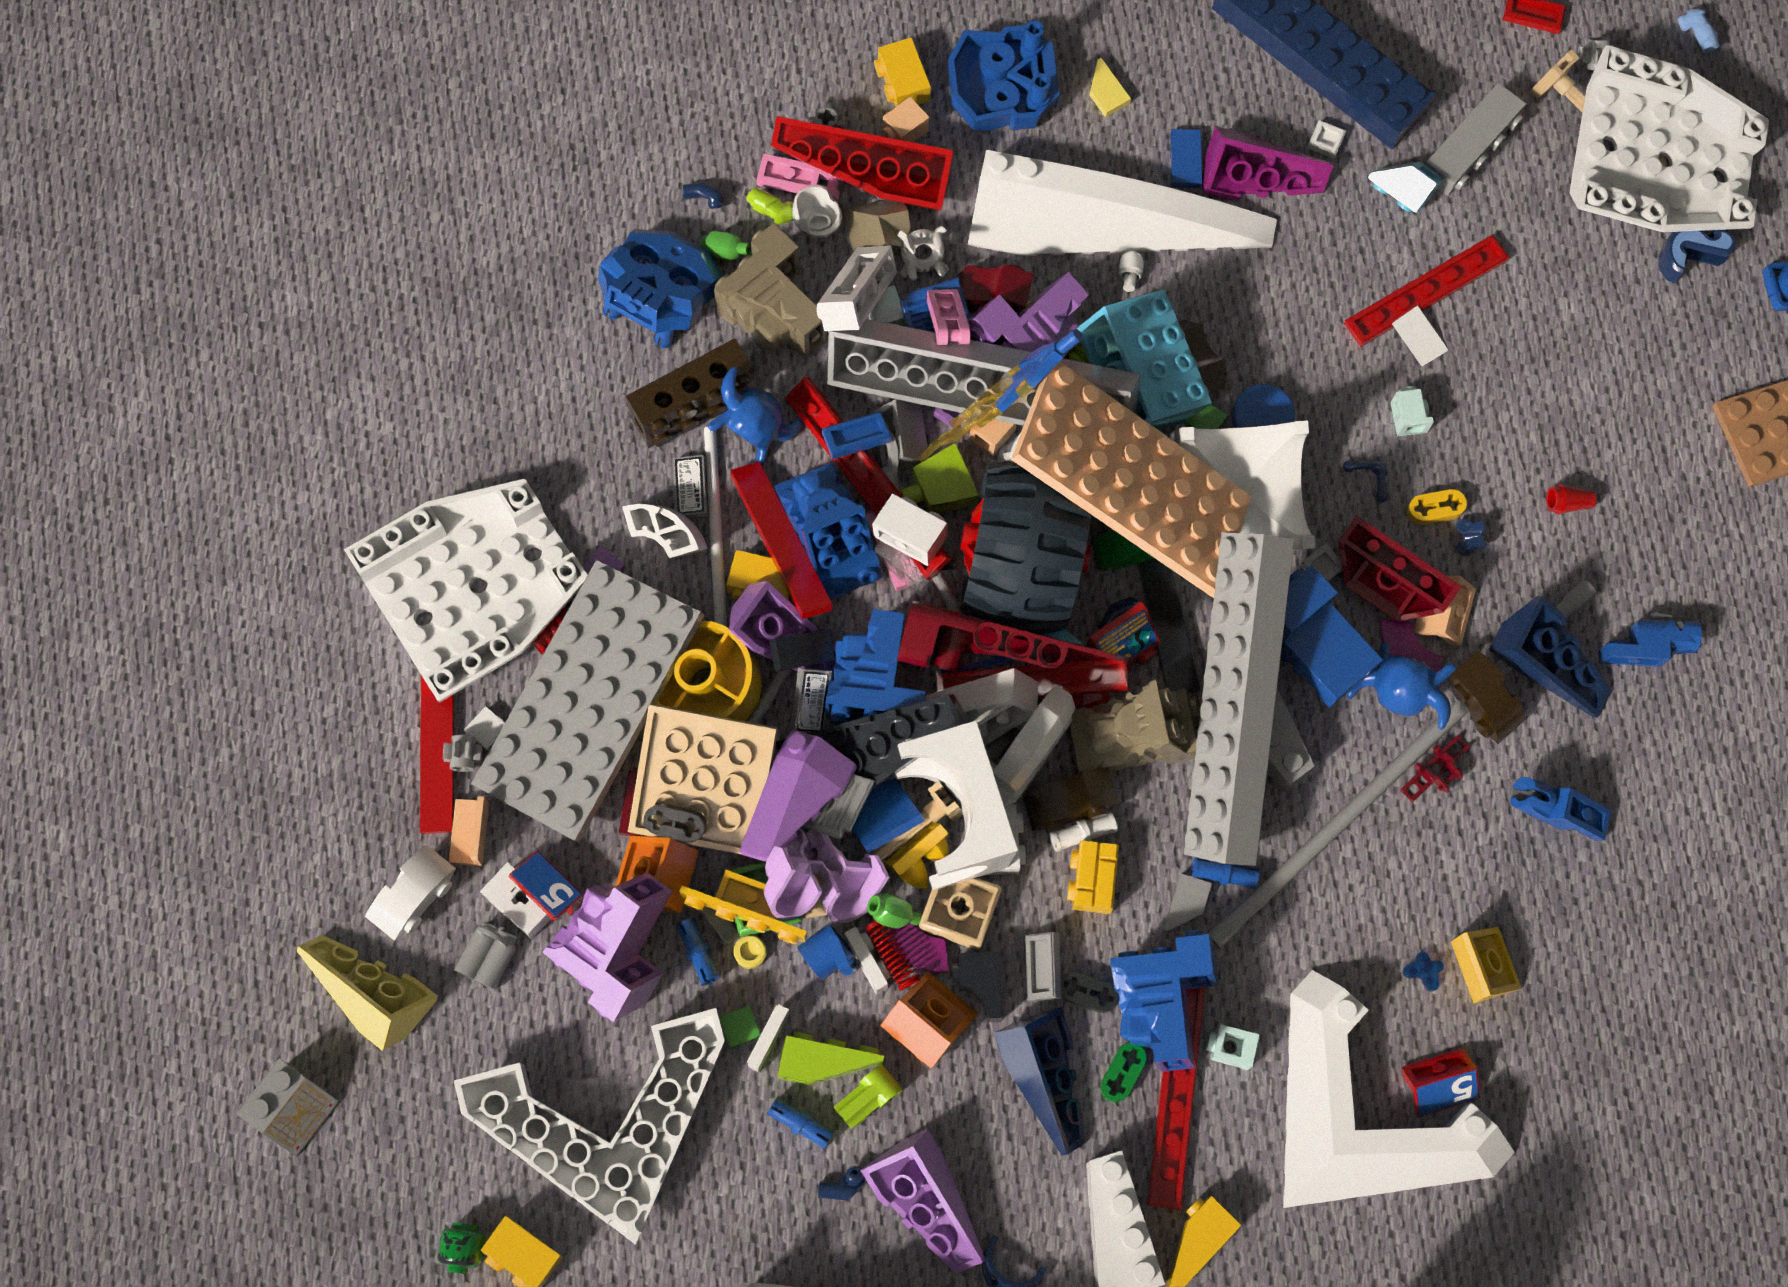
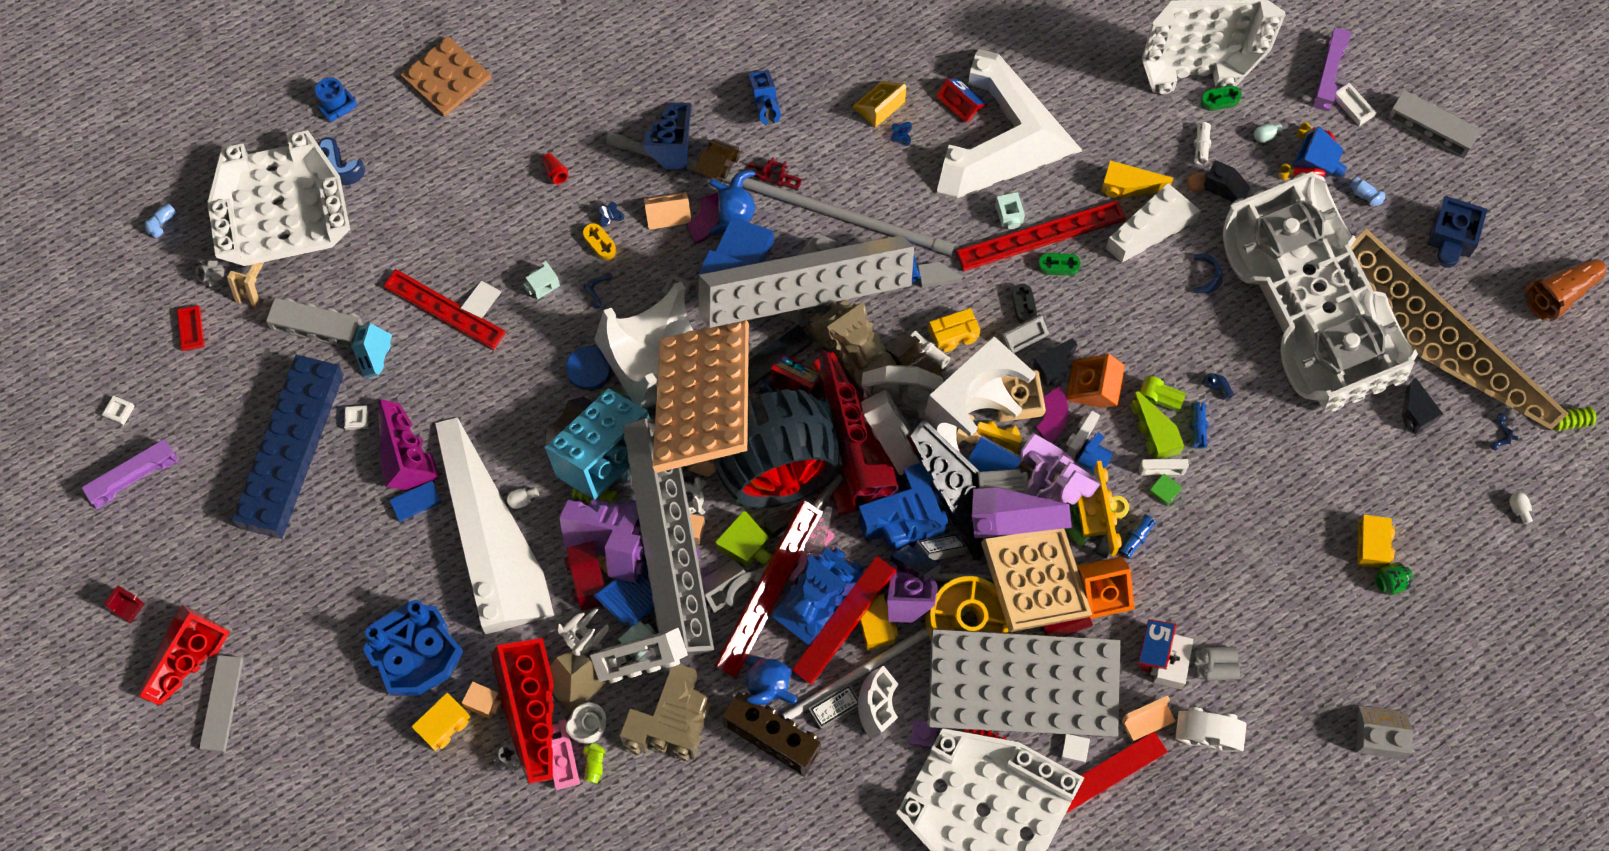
camera: 115 degrees left, 5 degrees down
(373, 1000) = (1287, 718): light yellow wedge -> none
(462, 753) = (1102, 751): light grey gear -> none
(605, 941) = (1171, 580): medium lavender brick -> none
(608, 1178) = (1293, 506): white wedge -> none
(658, 282) = (678, 803): blue brick -> none
(673, 830) = (1072, 582): black beam -> none
(706, 191) = (603, 816): dark blue arm -> none
(725, 245) = (643, 776): bright green plant -> none
(856, 435) = (746, 604): blue tile -> none
(874, 928) = (1081, 405): red piece -> none
(892, 911) = (1048, 427): bright green plant -> none
(910, 529) = (800, 528): white brick -> none
(922, 1190) = (1195, 337): medium lavender wedge -> none
(948, 316) = (633, 579): bright pink plate -> none
(1004, 393) = (683, 497): piece -> none
(1038, 1062) = (1085, 310): dark blue wedge -> none
(1107, 90) = (385, 578): light yellow tile -> none
(1156, 996) = (1007, 258): blue brick -> none
(1392, 575) = (665, 241): dark red wedge -> none
(1653, 641) = (626, 88): blue plate -> none

